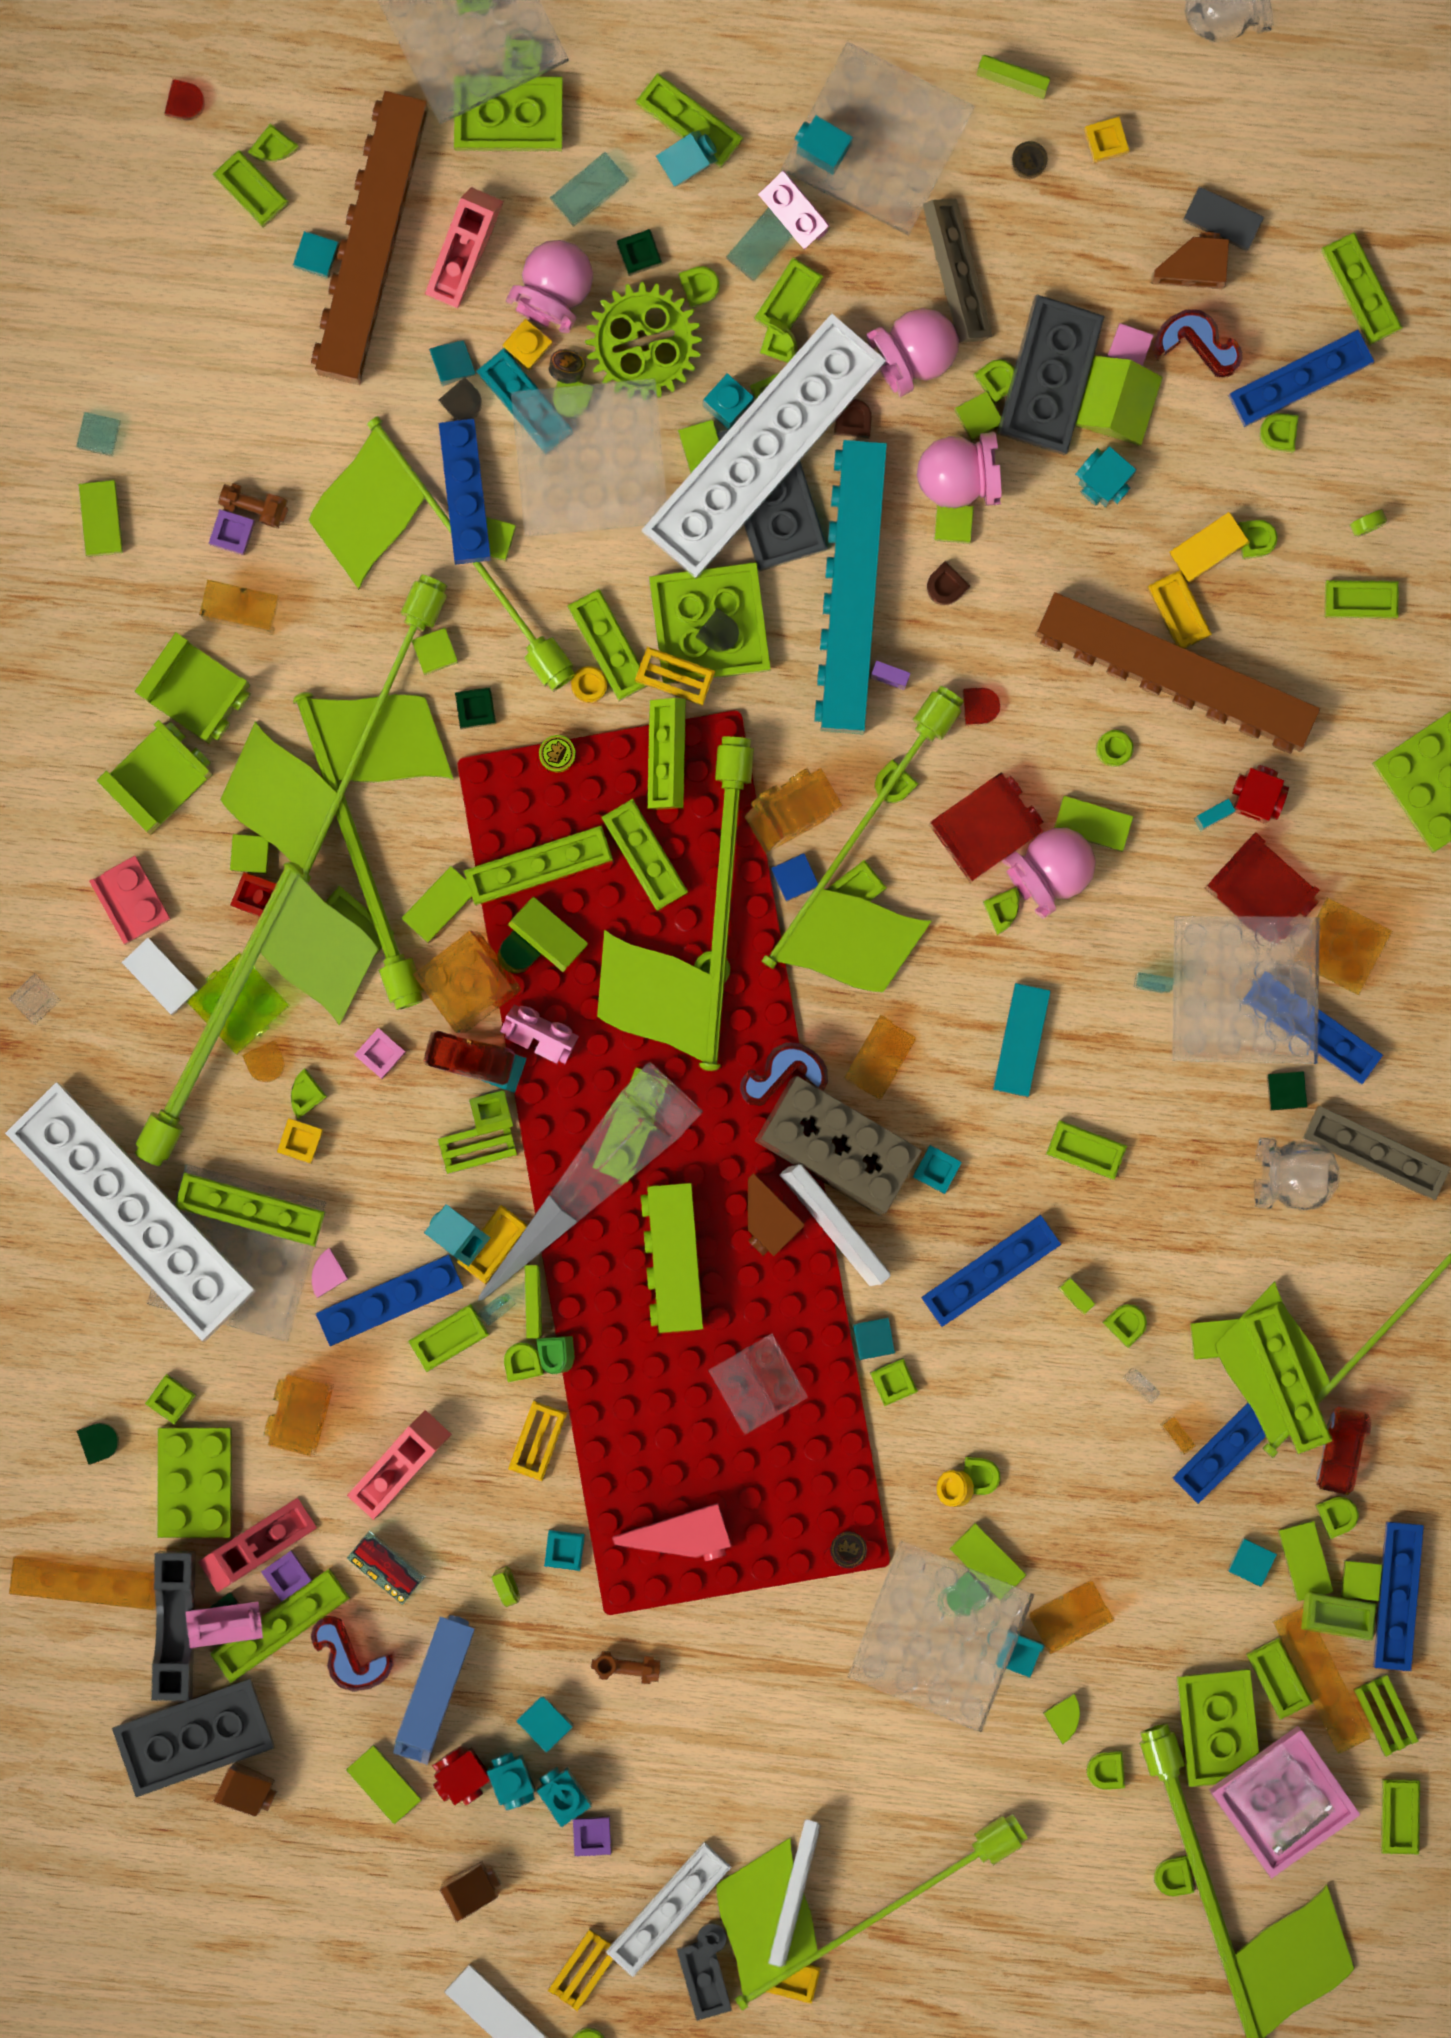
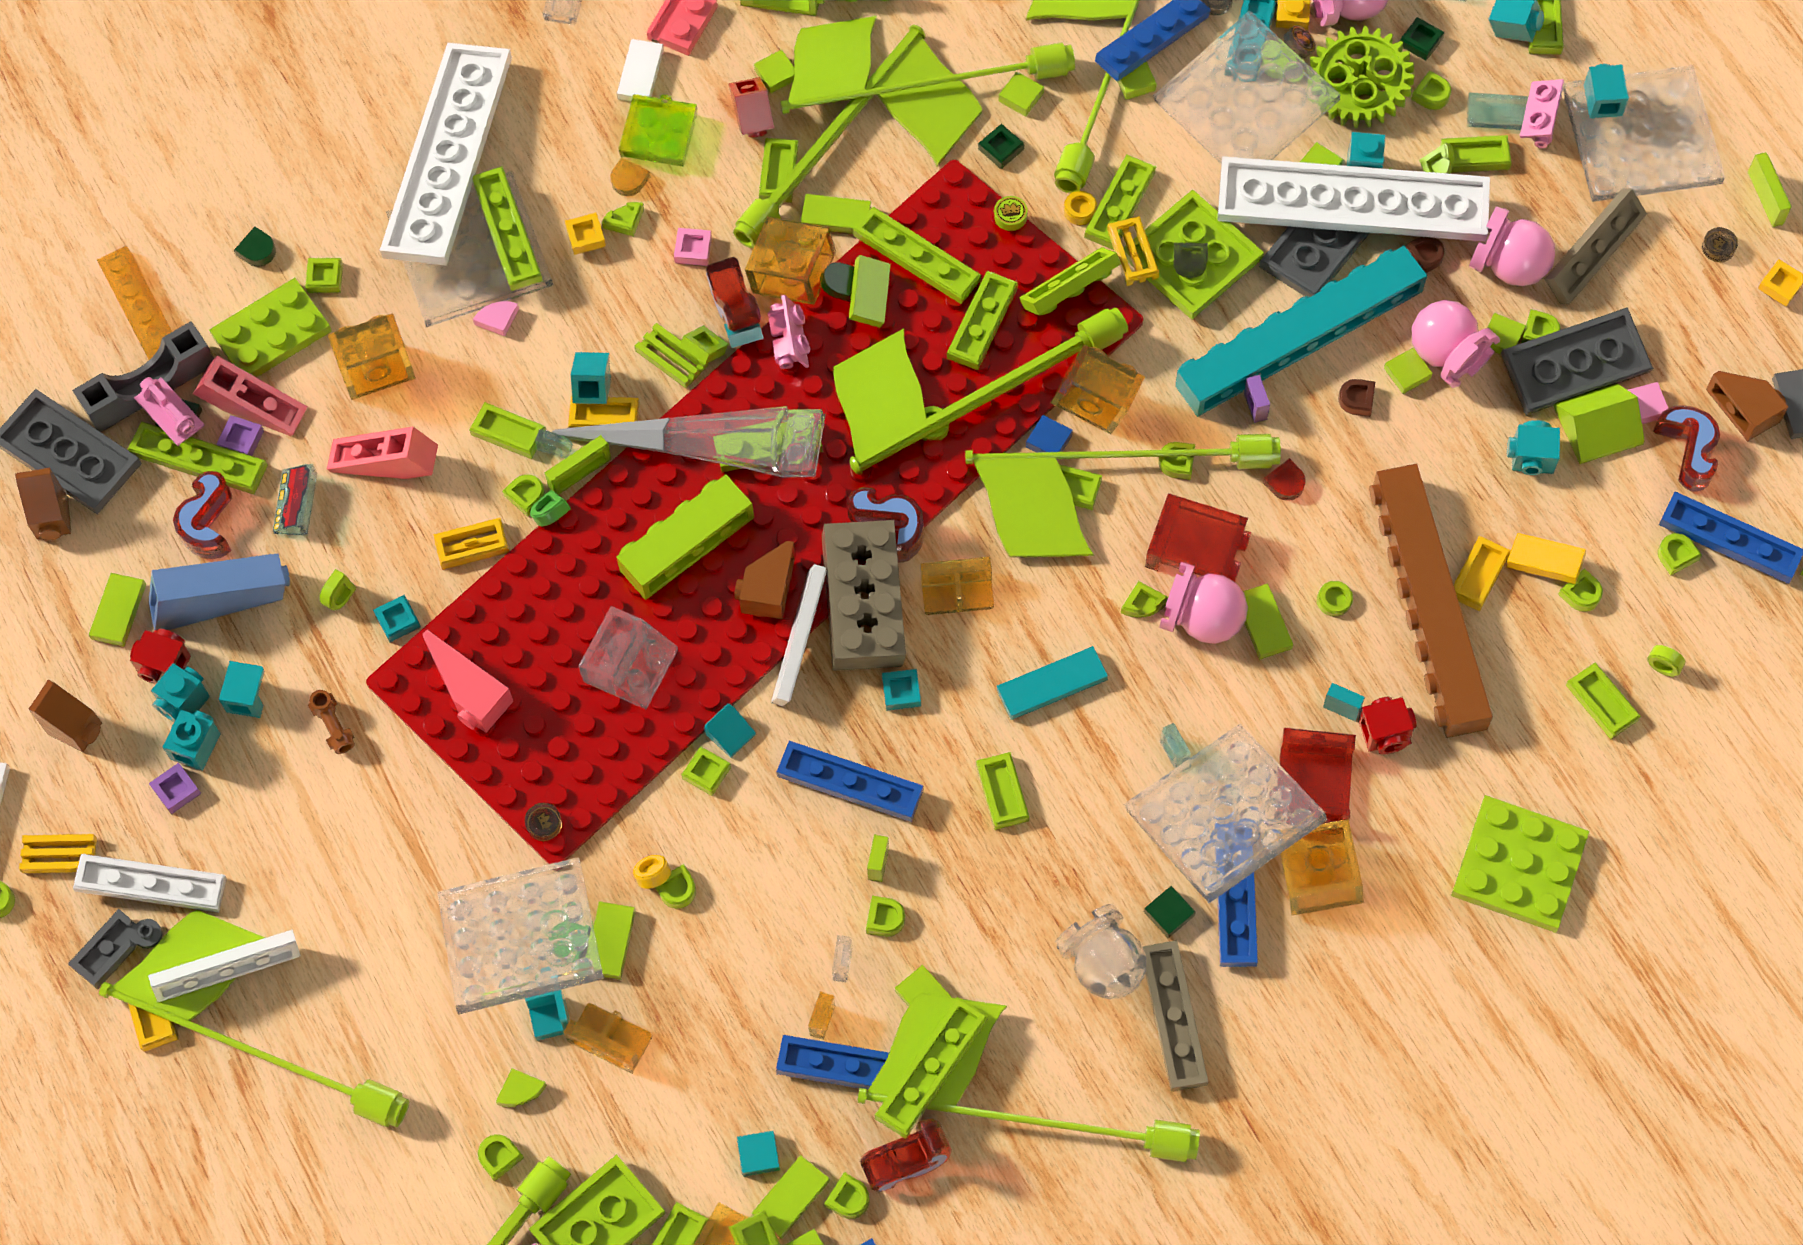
camera: 60 degrees right, 20 degrees down
(310, 948) = (733, 138): lime flag -> none
(389, 1300) = (507, 372): blue plate -> none

